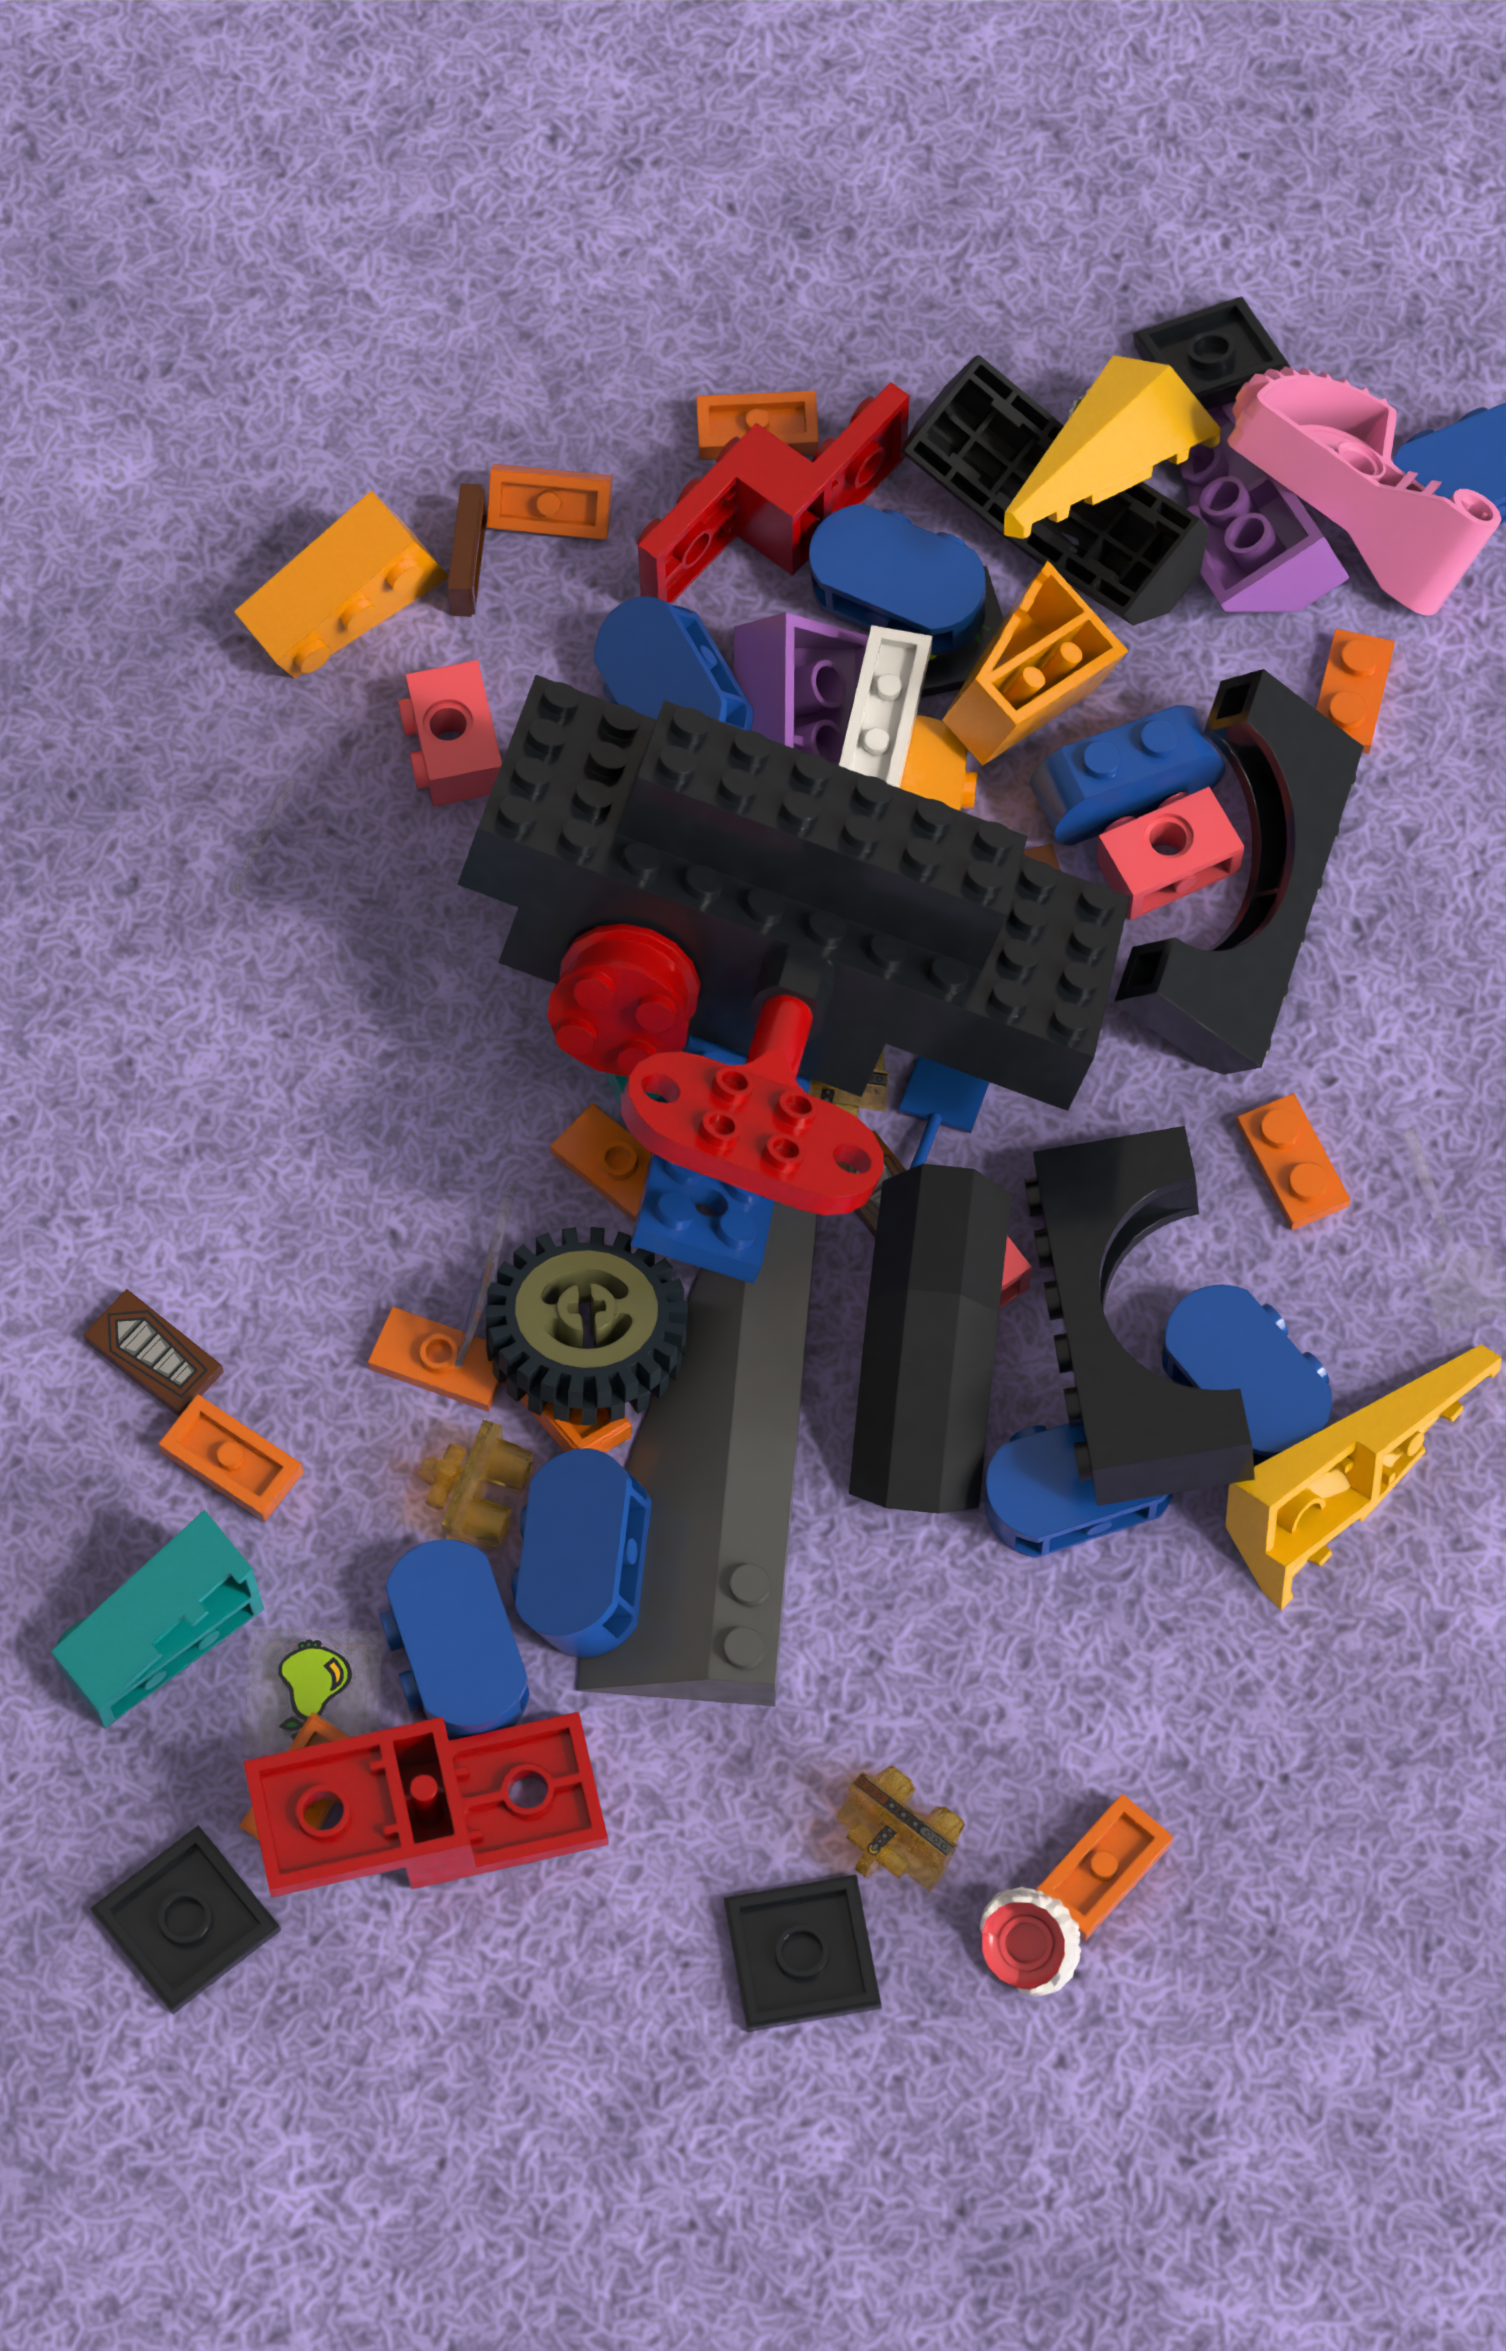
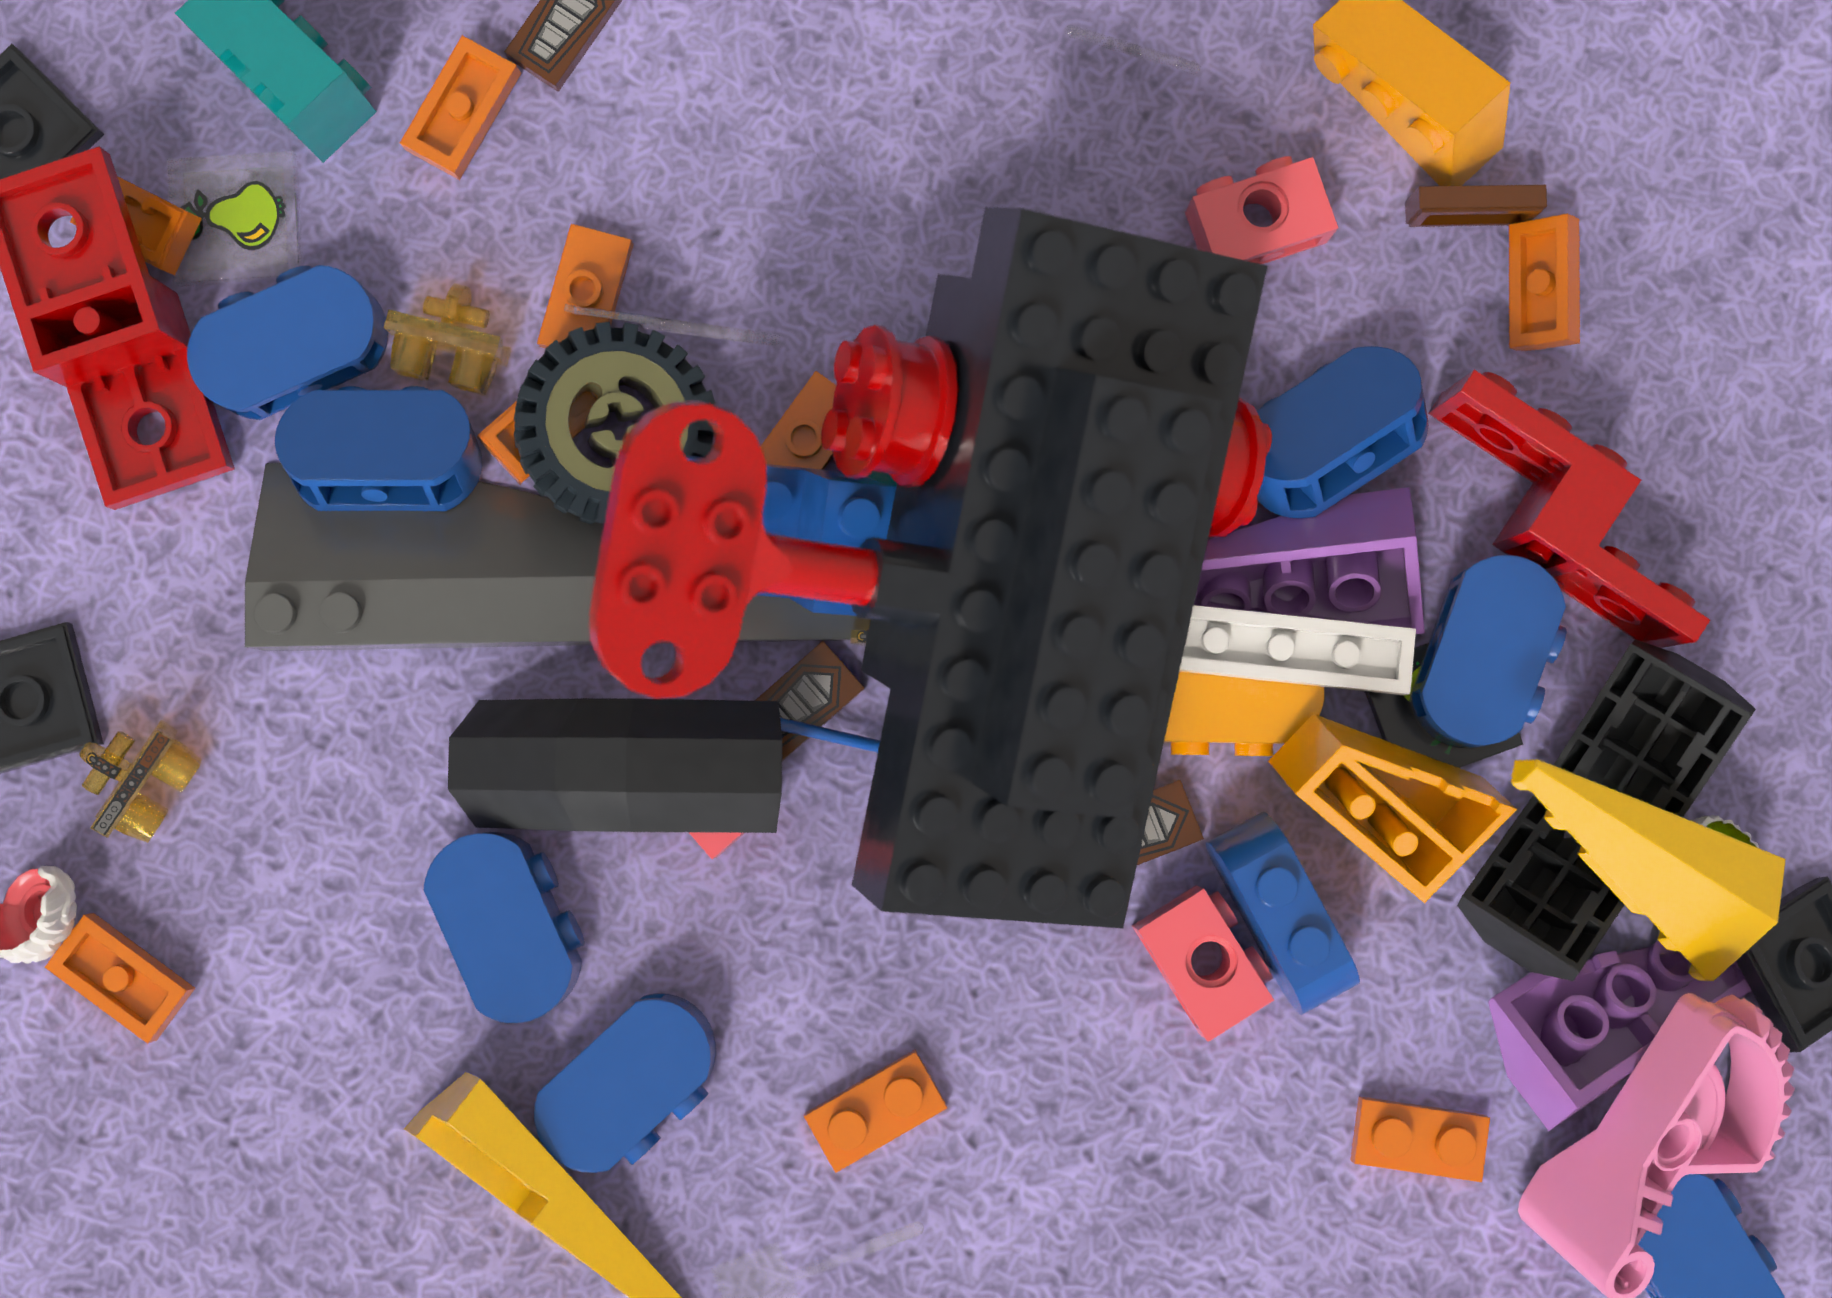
camera: 80 degrees right, 20 degrees up
(784, 414) = (1669, 499): orange plate -> none
(1137, 1427) = (520, 976): black arch -> none
(1296, 786) = (1286, 1090): black arch -> none

